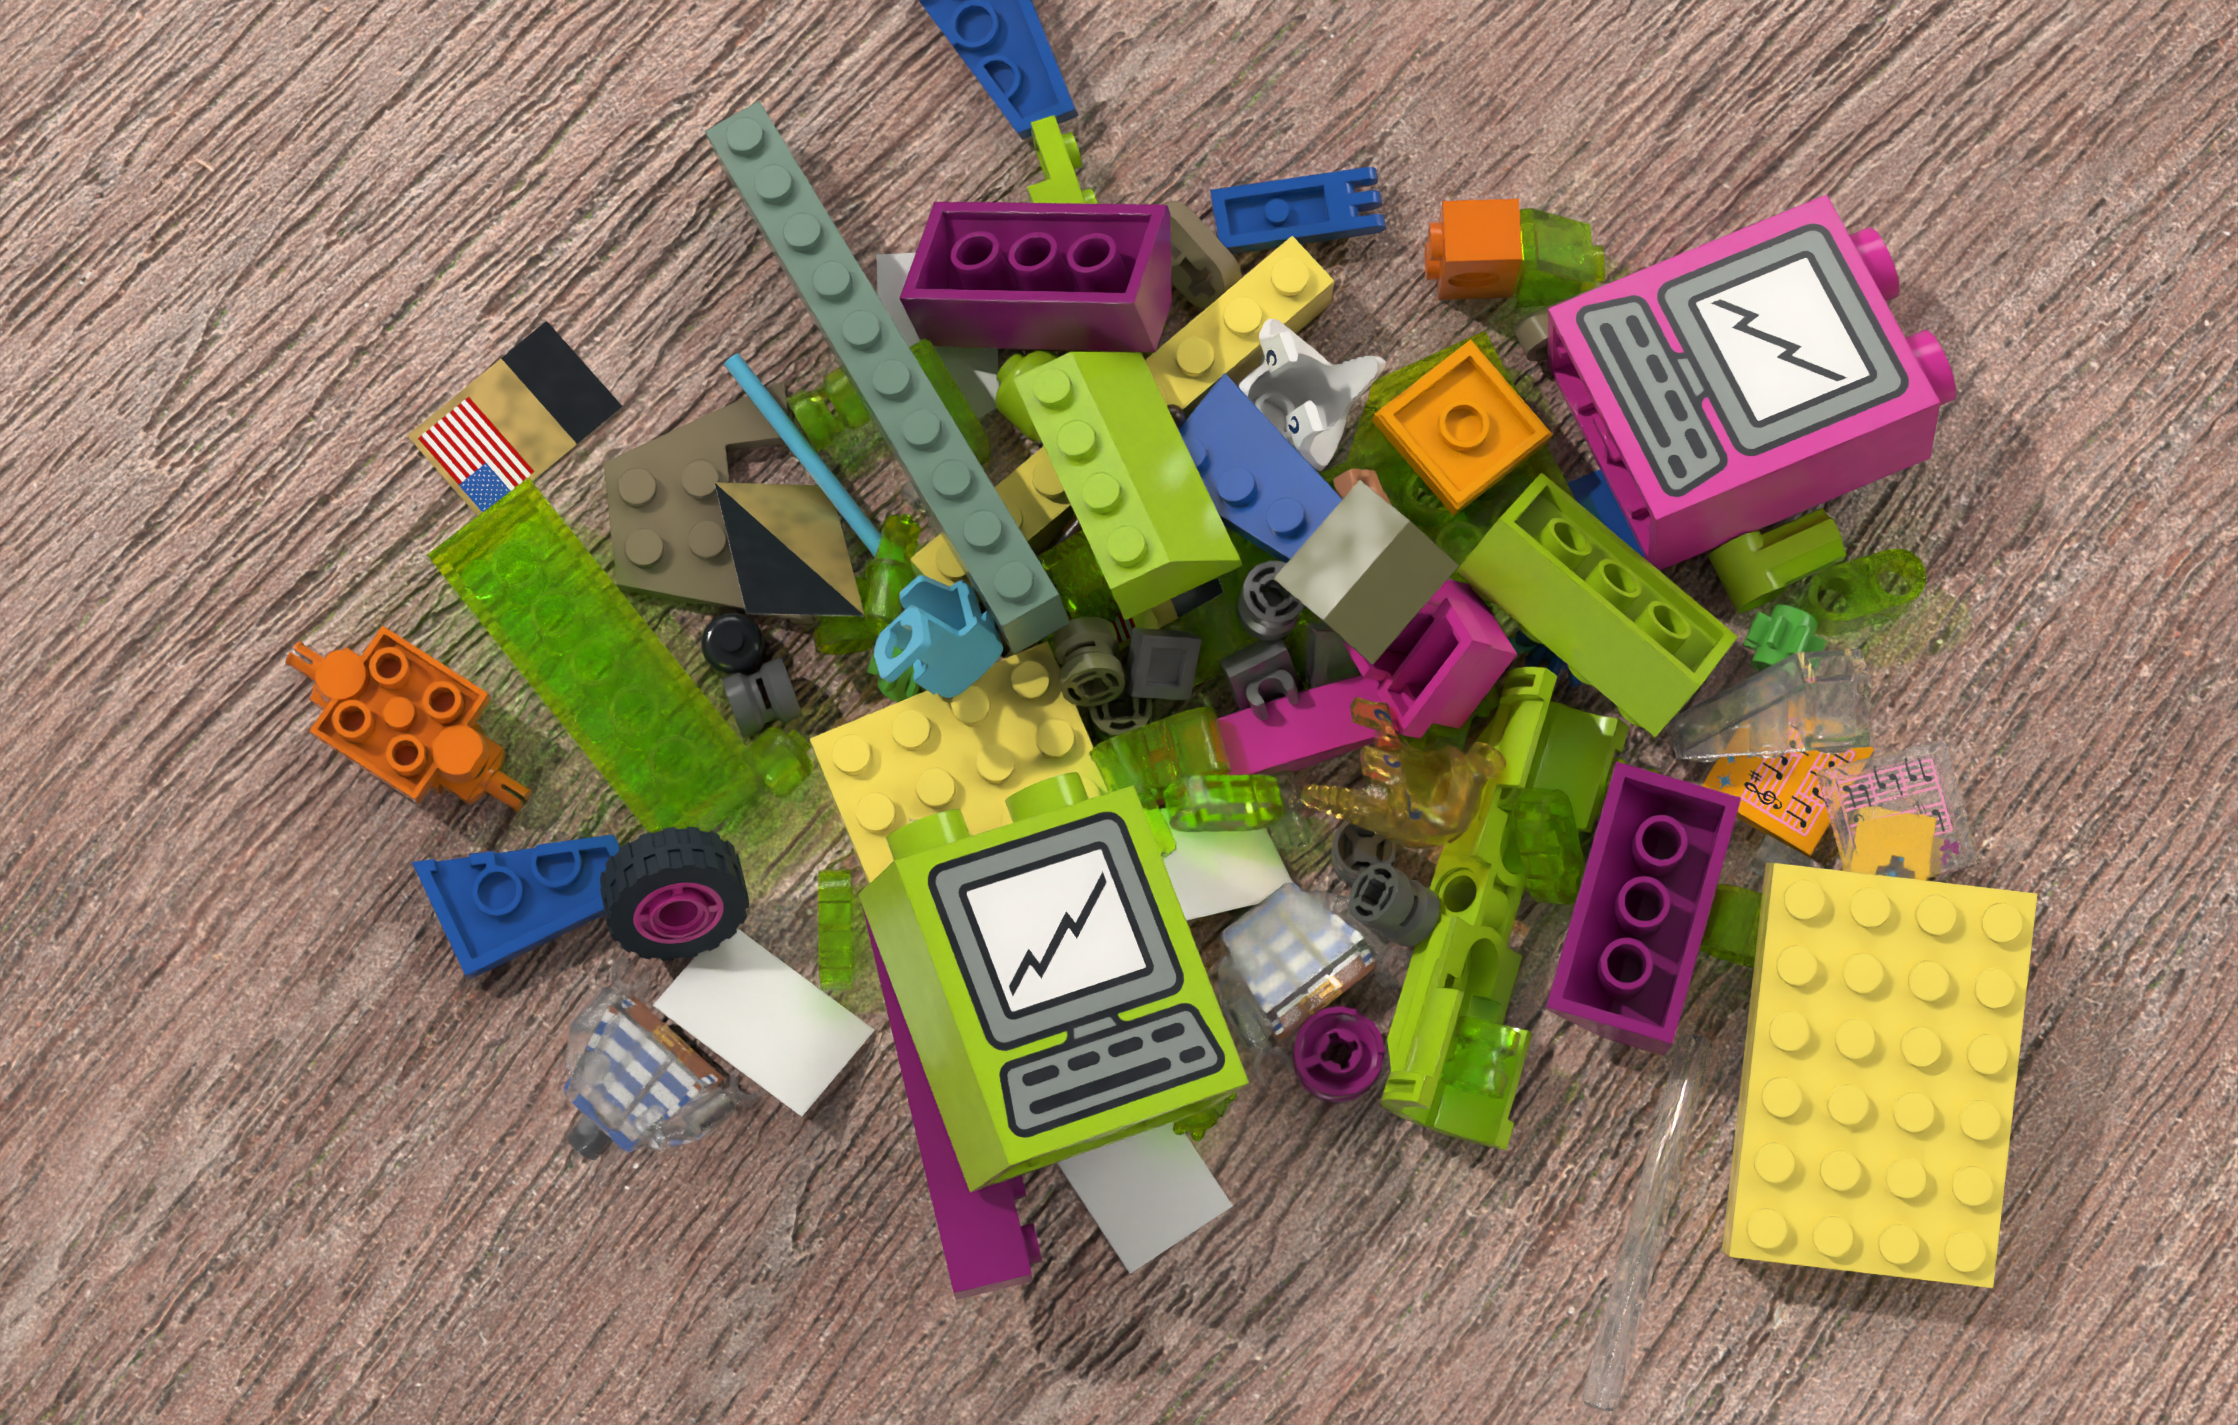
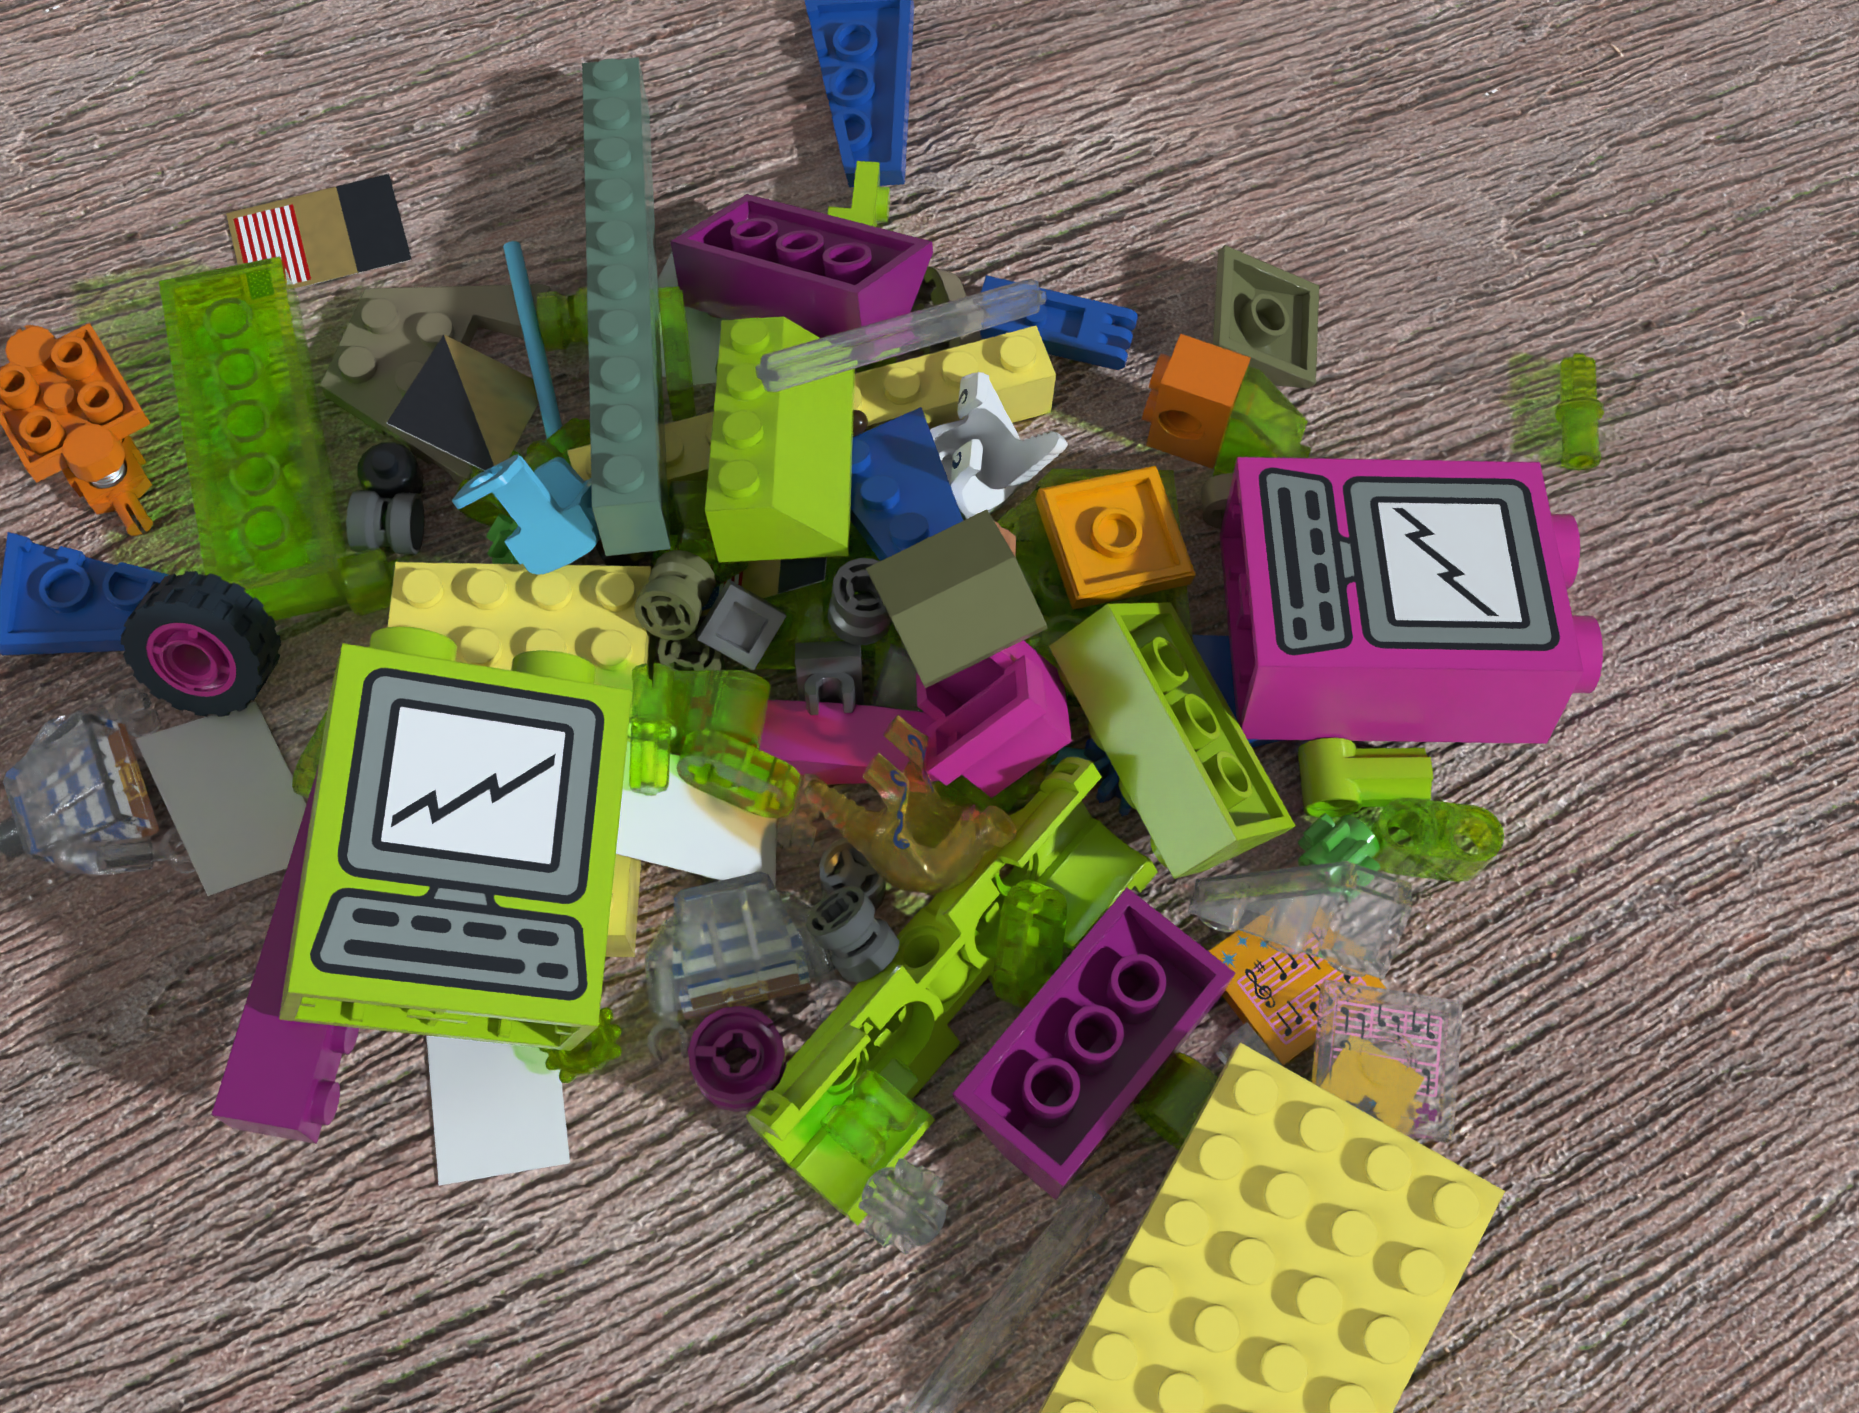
camera: 20 degrees right, 10 degrees down
(1185, 314) = (898, 335): none -> clear axle
(1502, 120) = (1267, 318): none -> olive slope
(1540, 1117) = (903, 1206): none -> clear gear
(1839, 90) = (1579, 413): none -> clear neon green axle

